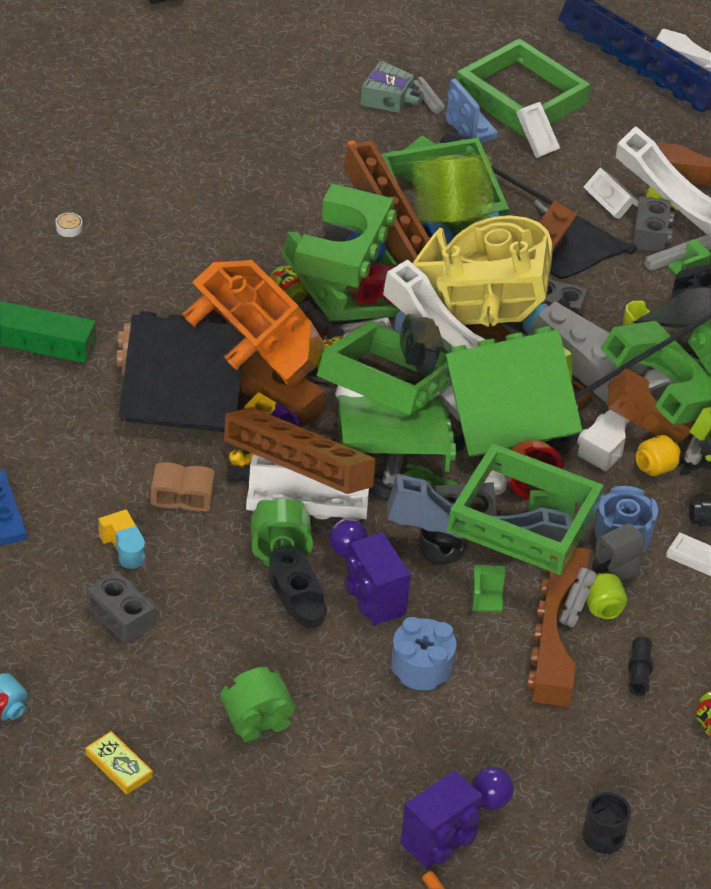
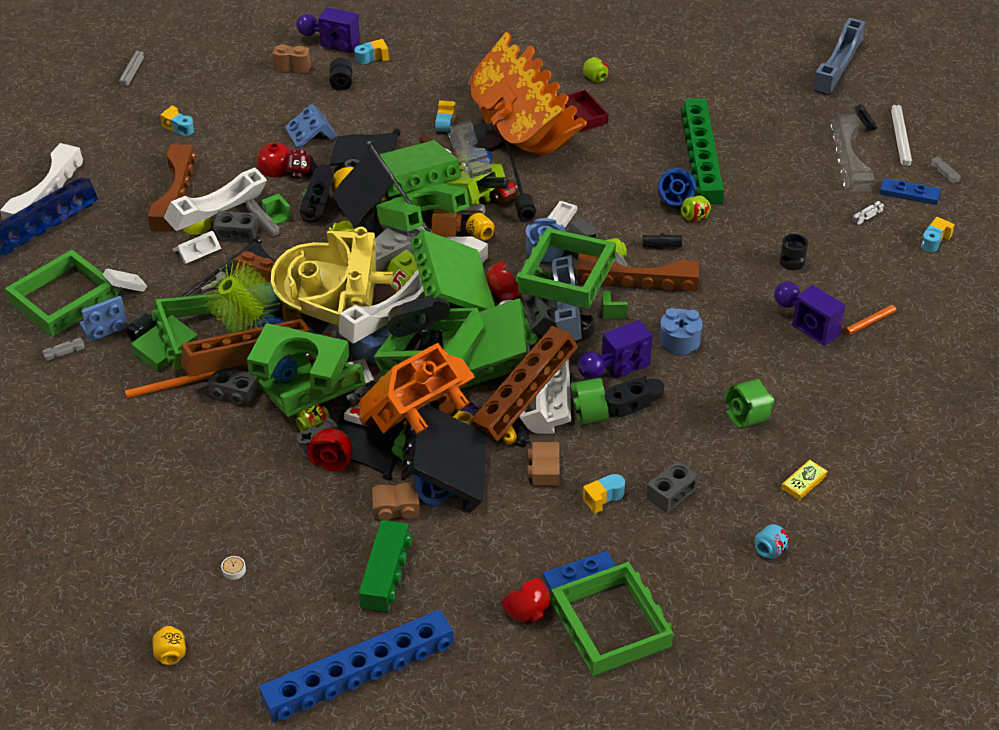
camera: 90 degrees left, 0 degrees up
(389, 89) = (56, 369): sand green torso -> none

